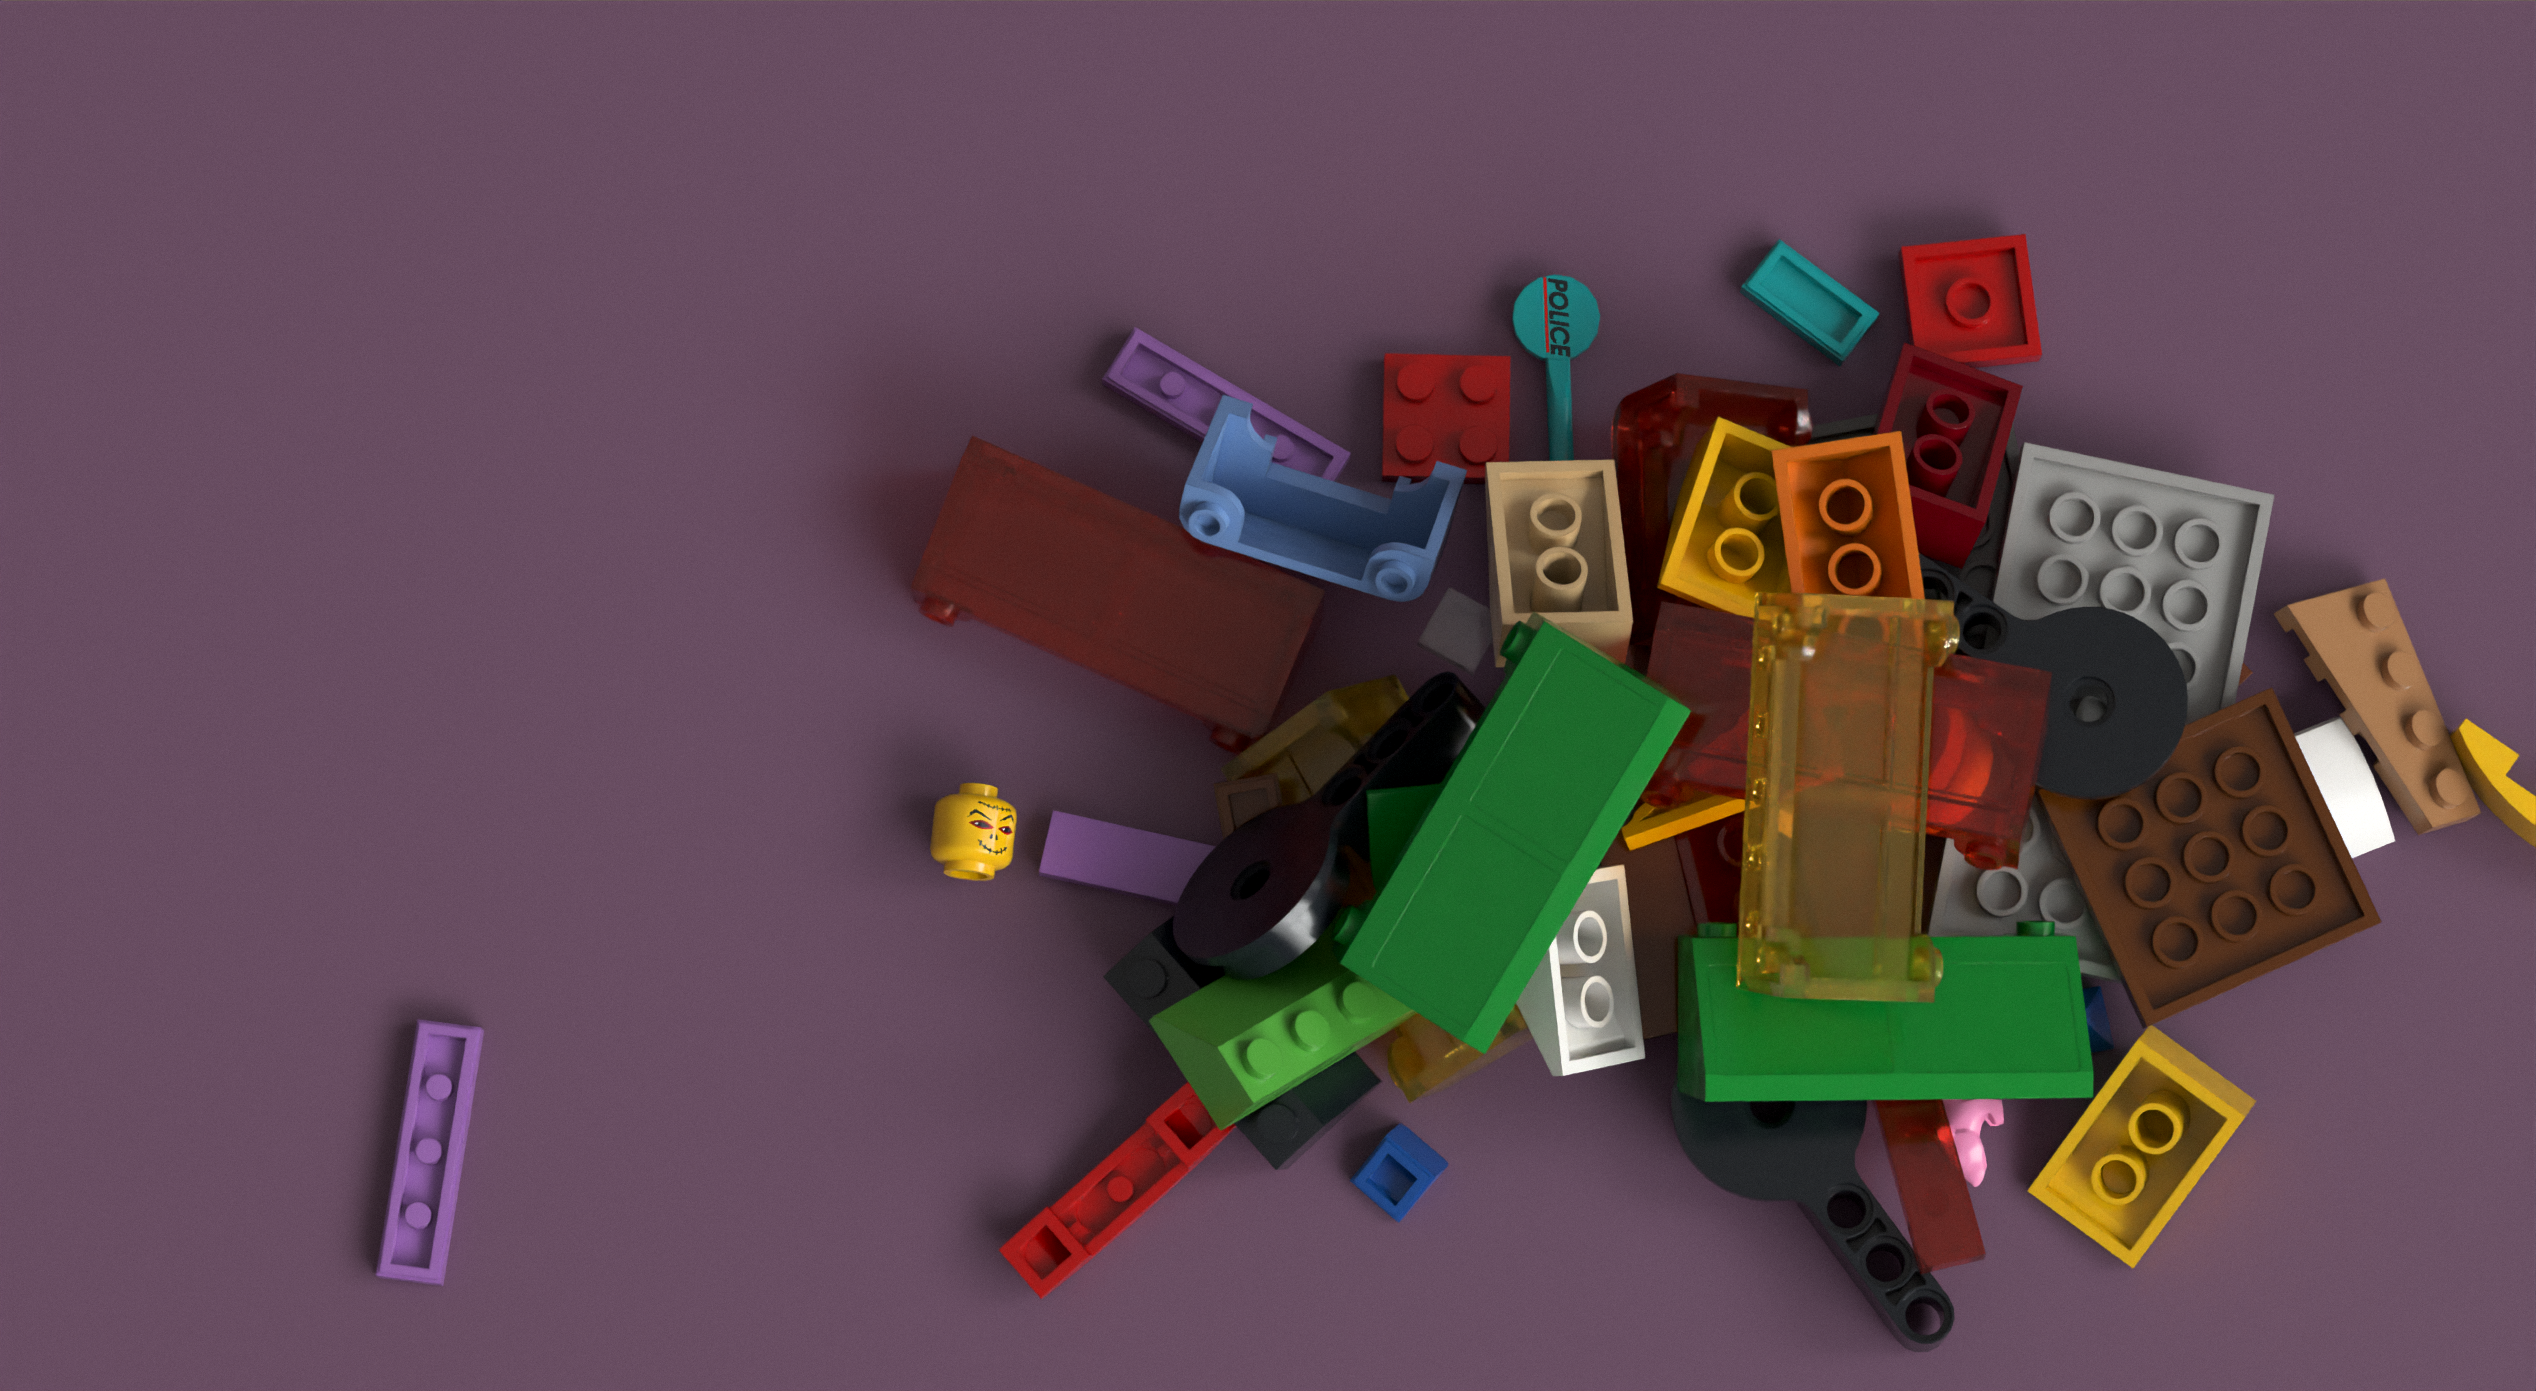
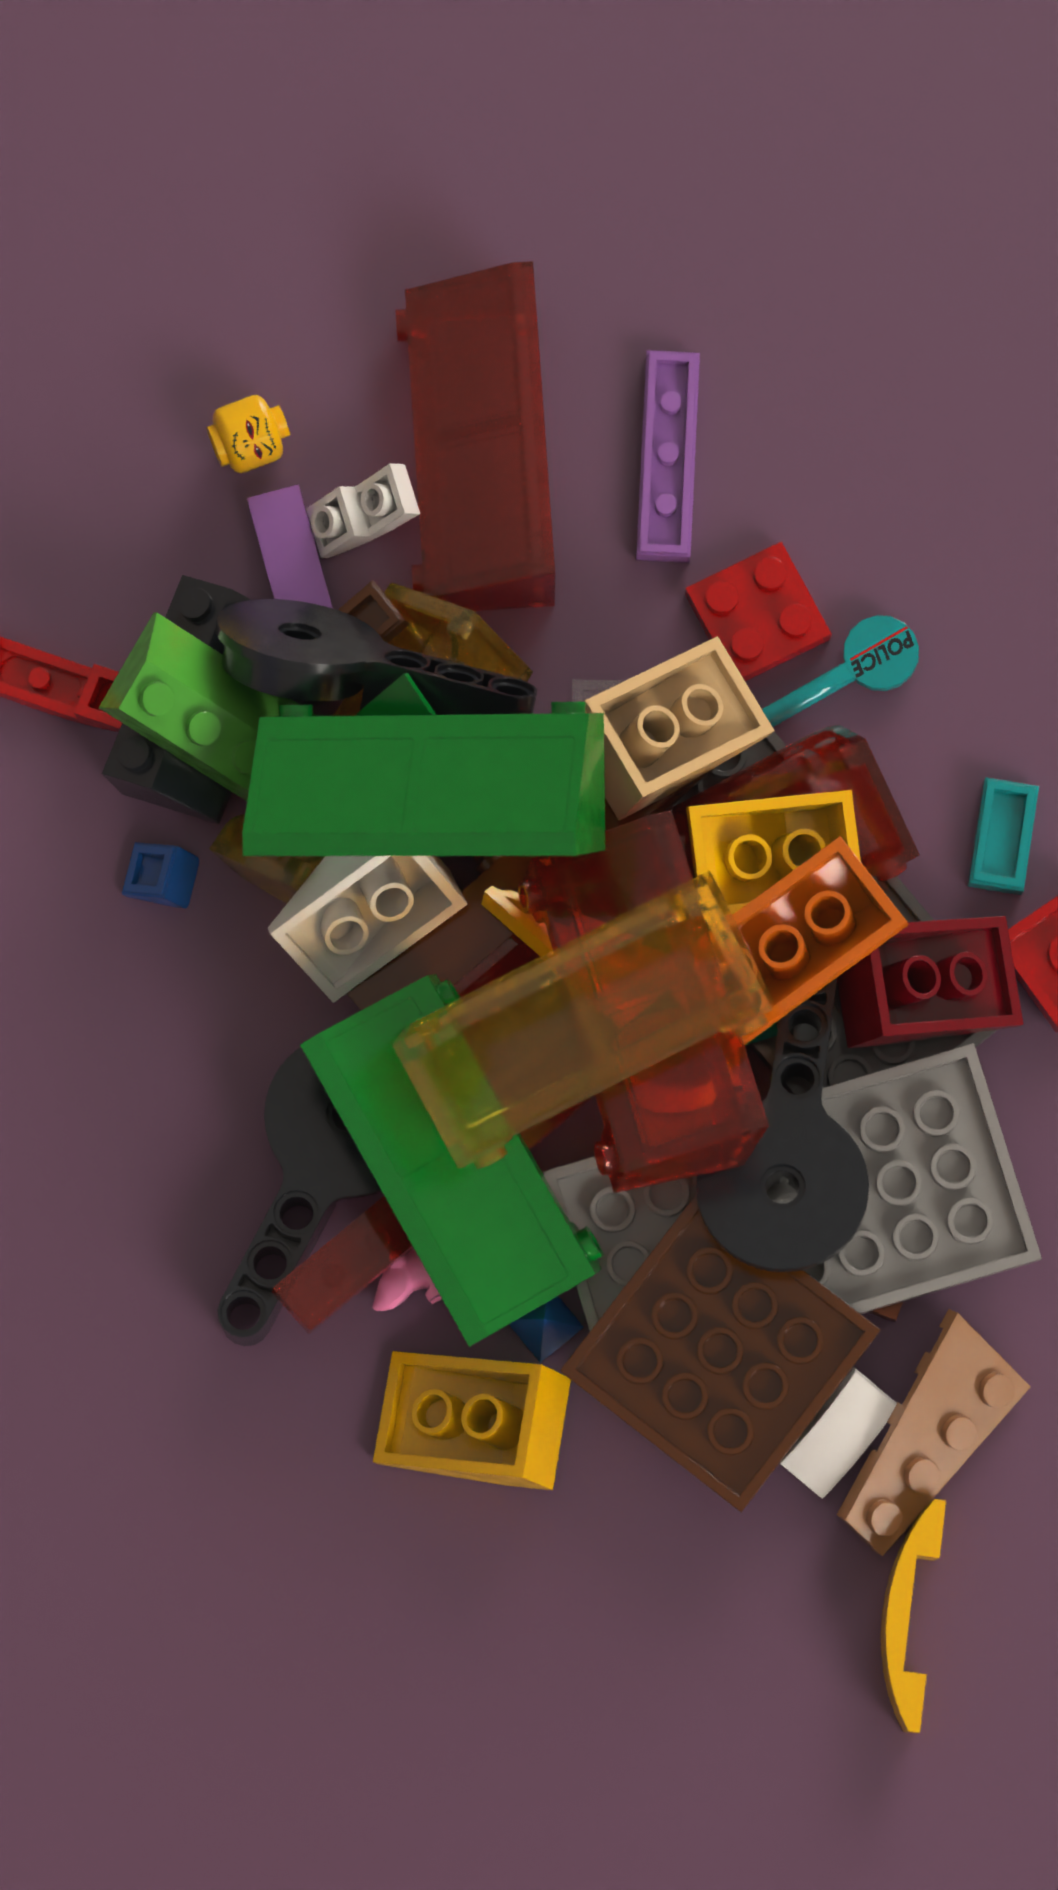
camera: 65 degrees right, 0 degrees up
(1123, 757) = (362, 512): none -> white slope
(1313, 523) = (606, 541): medium blue windscreen -> none

